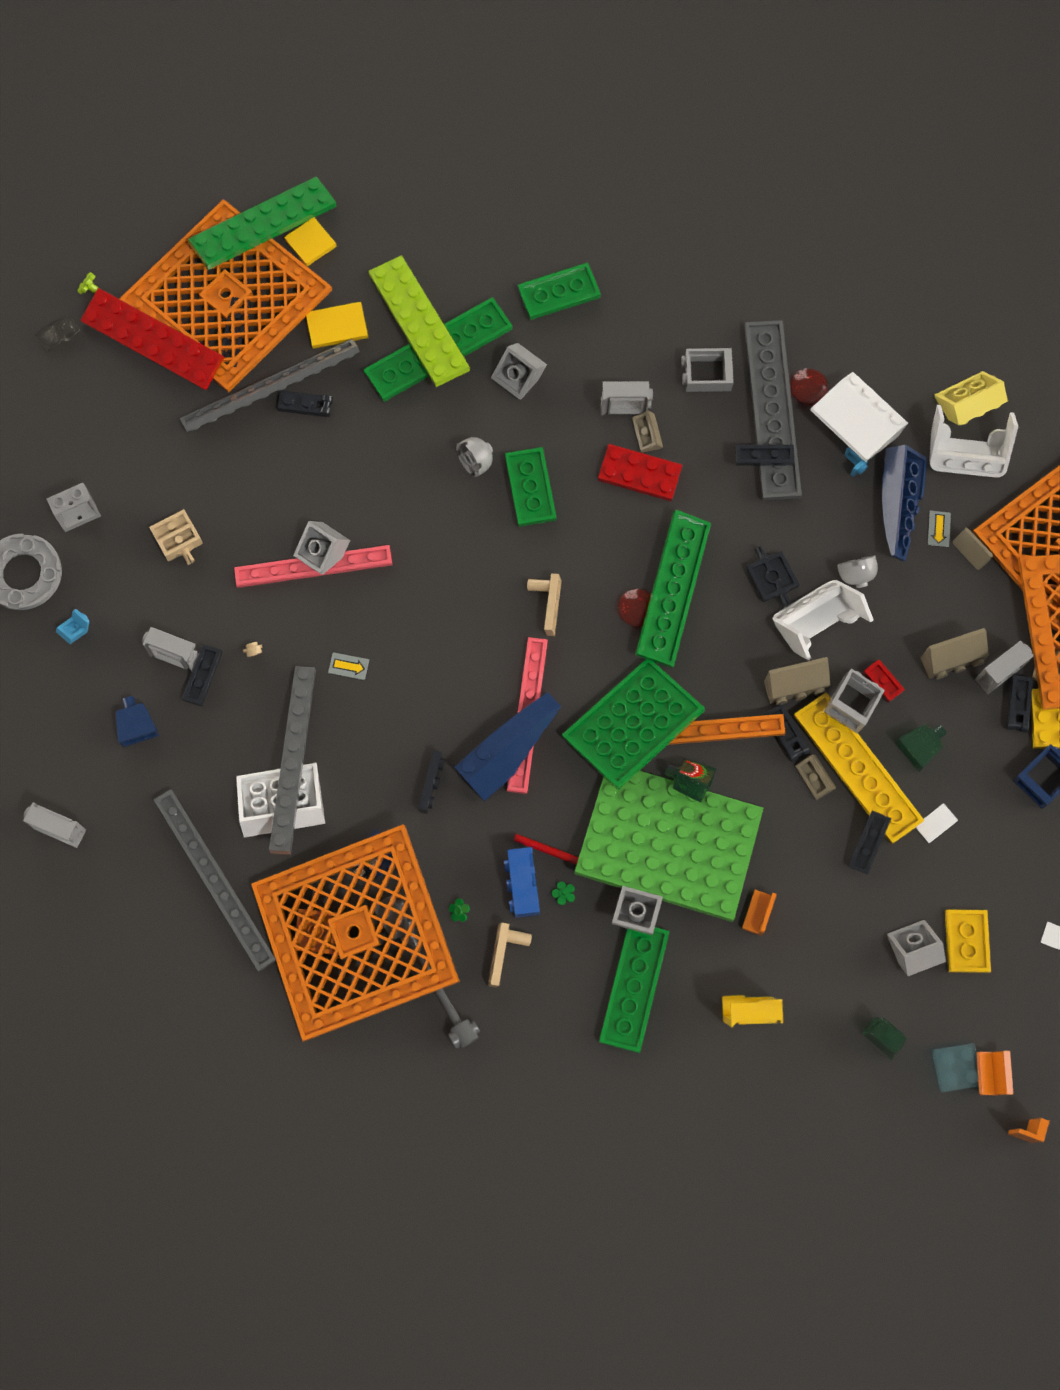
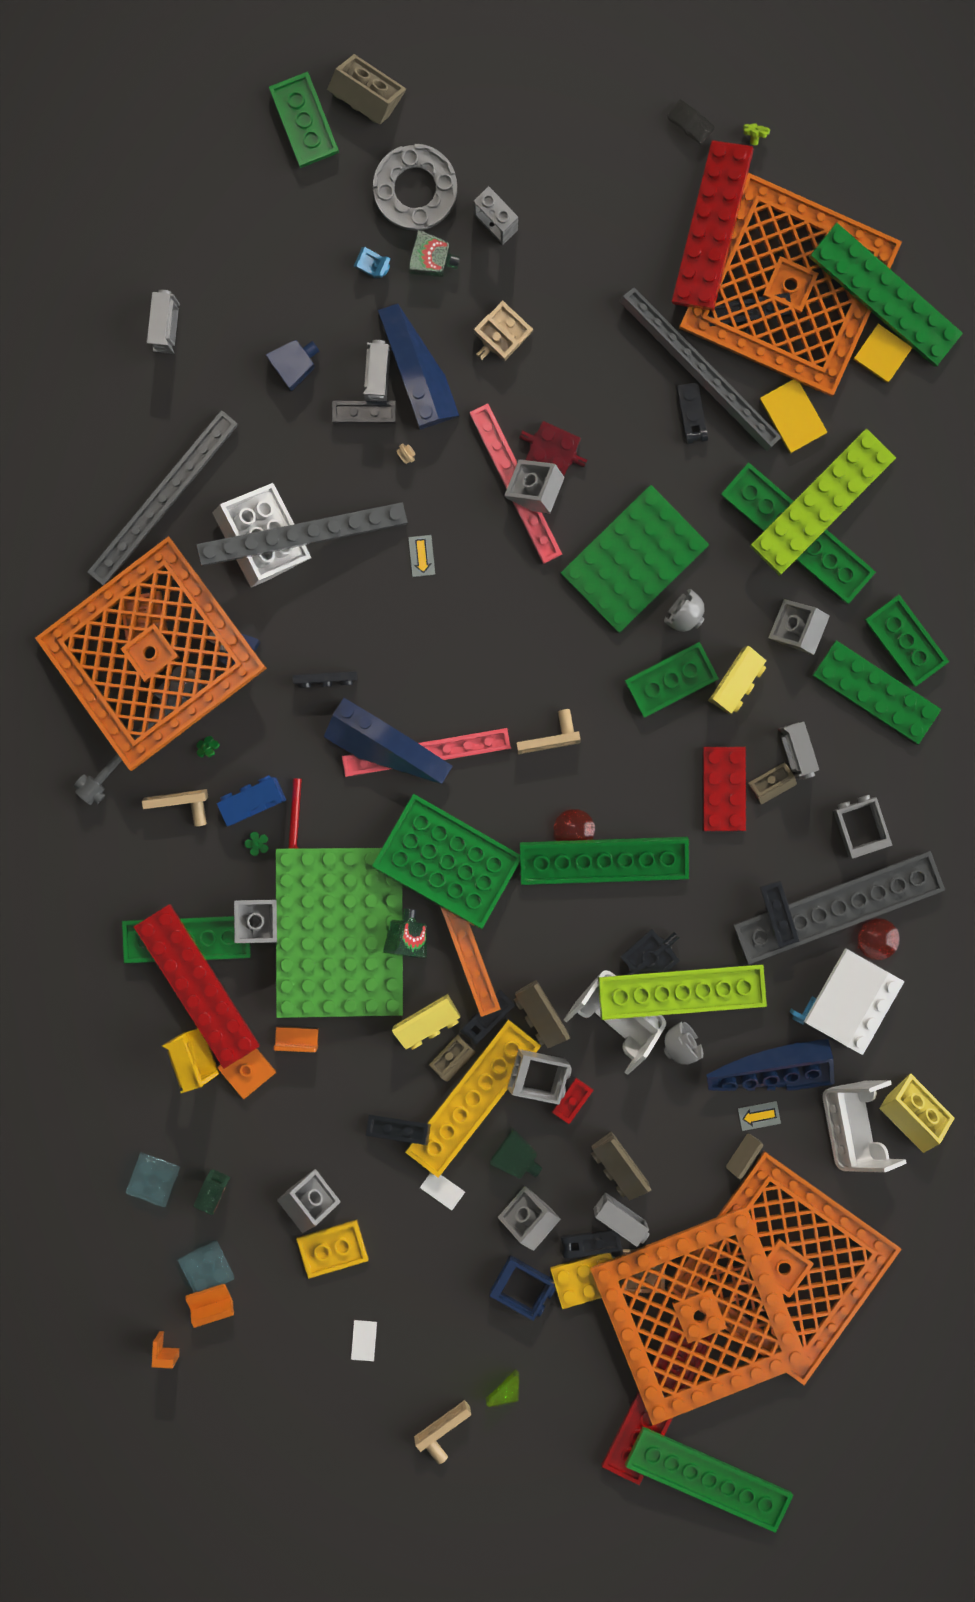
camera: 75 degrees right, 15 degrees up
(87, 575) = (431, 256): none -> clear green torso
(185, 618) = (419, 371): none -> dark blue wedge
(291, 523) = (553, 446): none -> dark red plate
(414, 487) = (634, 558): none -> green plate
(548, 431) = (738, 680): none -> light yellow slope
(595, 327) = (876, 692): none -> green plate
(682, 988) = (196, 986): none -> red plate
(774, 969) = (248, 1073): none -> orange plate
(776, 786) = (426, 1022): none -> light yellow slope
(810, 556) = (681, 992): none -> lime plate
(857, 1093) = (152, 1179): none -> clear light blue plate
(982, 751) = (529, 1218): none -> light grey slope

